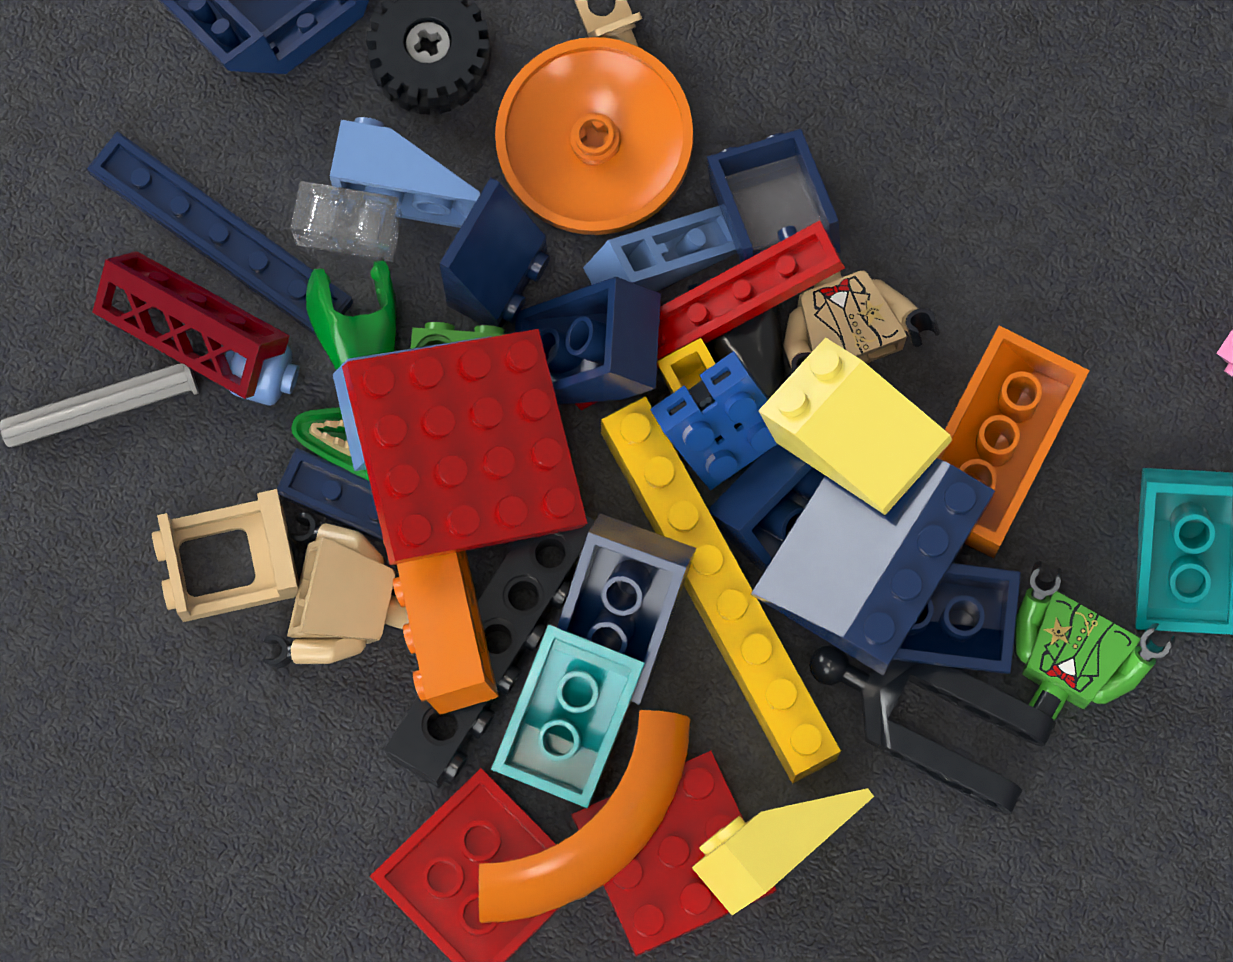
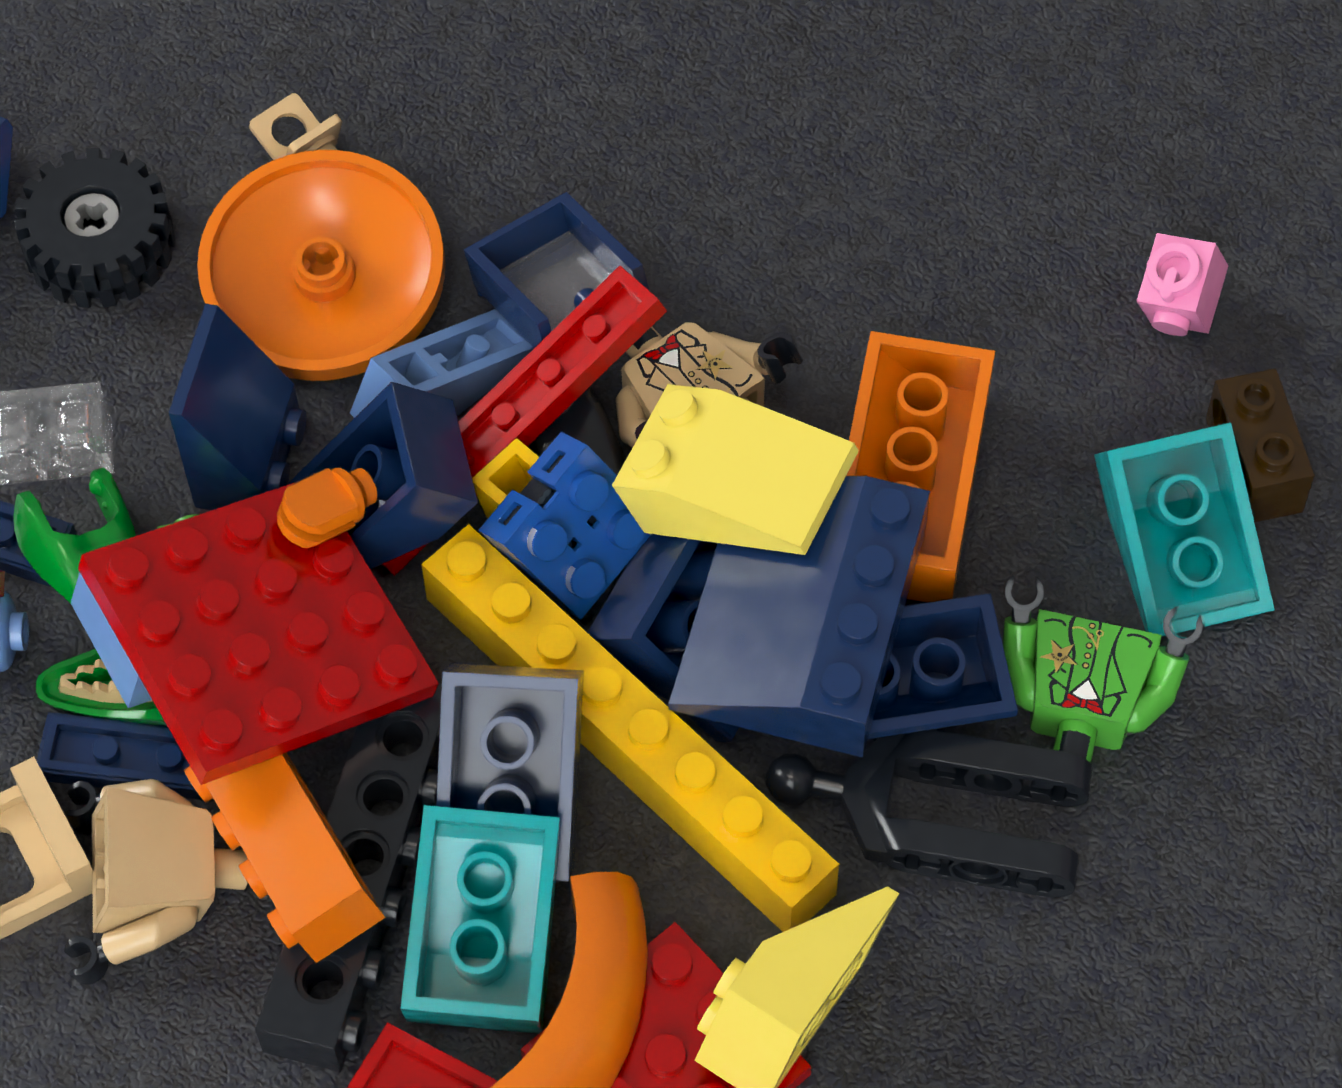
camera: 15 degrees left, 15 degrees down
(387, 164) = (79, 343): medium blue slope -> none
(539, 363) = (325, 505): none -> orange arm

